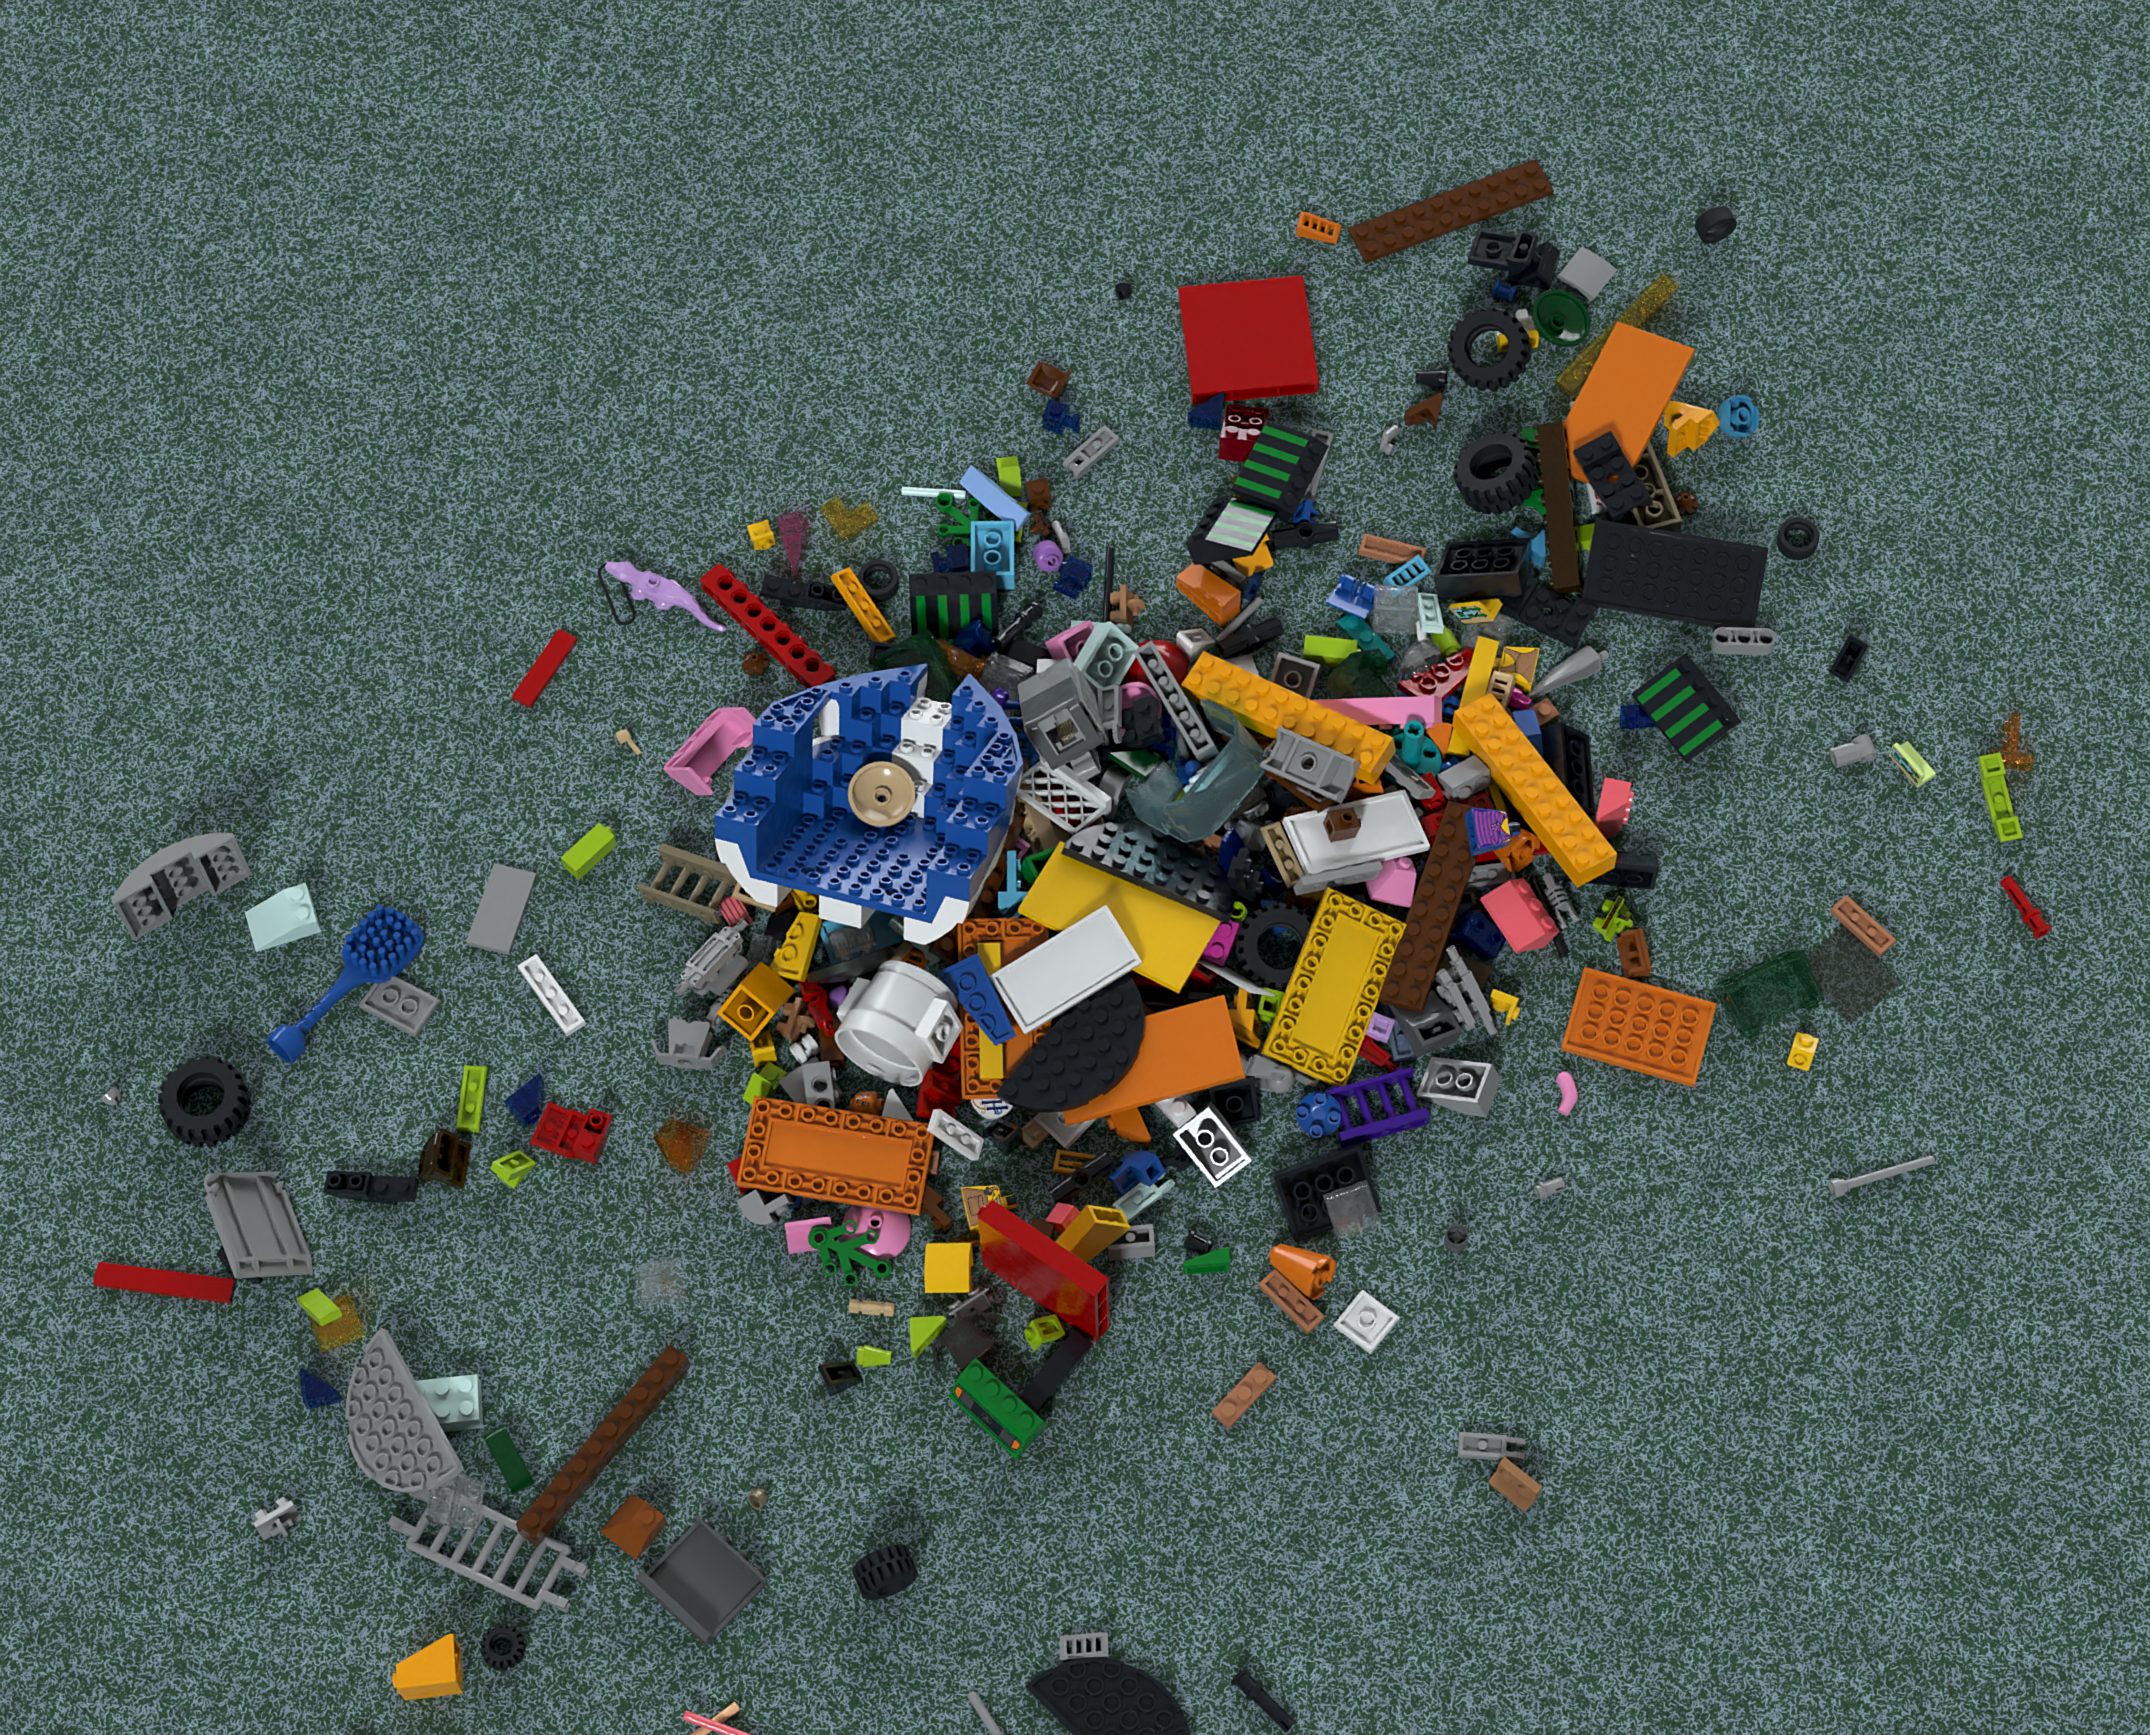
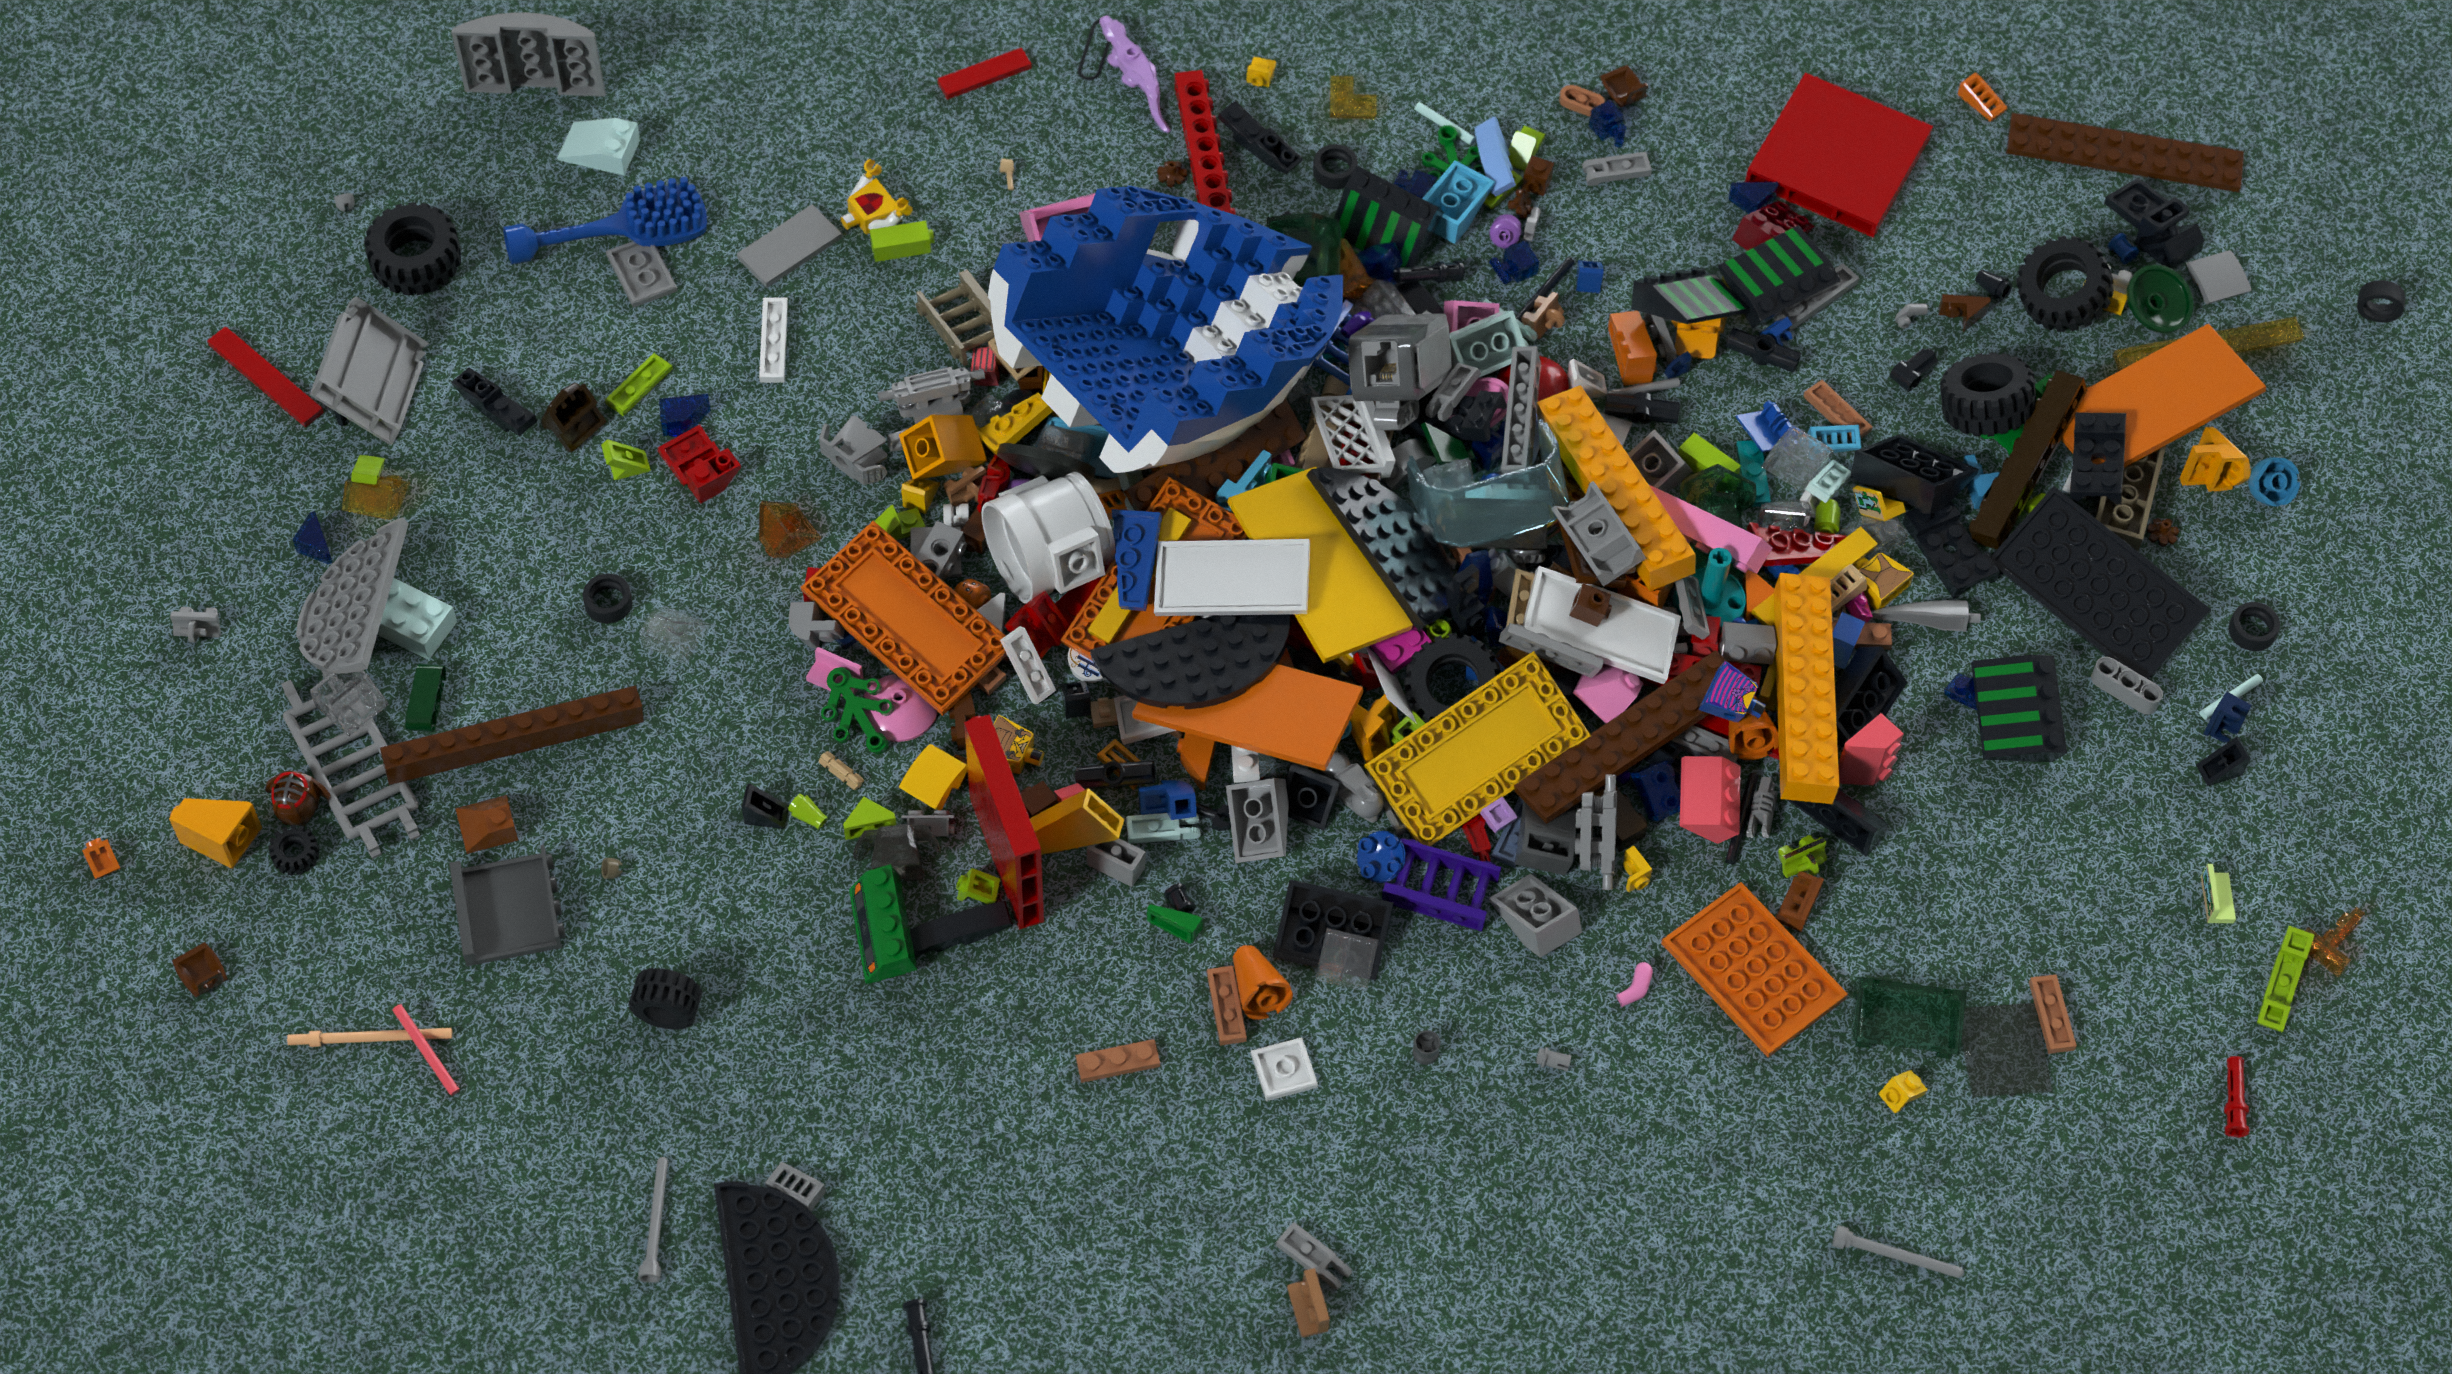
camera: 30 degrees right, 5 degrees down
(473, 1609) = (295, 804): none -> reddish brown piece
(545, 835) = (872, 205): none -> torso
(587, 1305) = (611, 614): none -> black tyre
(794, 538) = (1286, 90): clear pink slope -> none
(862, 606) = (1302, 173): light orange tile -> none
(881, 780) = (1182, 318): tan dish -> none
(1024, 410) = (1582, 99): none -> nougat plate
(1123, 290) = (1754, 50): black hinge -> none
(1134, 552) = (1589, 276): none -> blue slope
(1423, 486) = (1910, 373): none -> black piece
(1817, 603) = (2238, 692): none -> light aqua bar
(1829, 619) = (2228, 715): none -> dark blue hinge
(1859, 750) = (2171, 851): light grey piece -> none

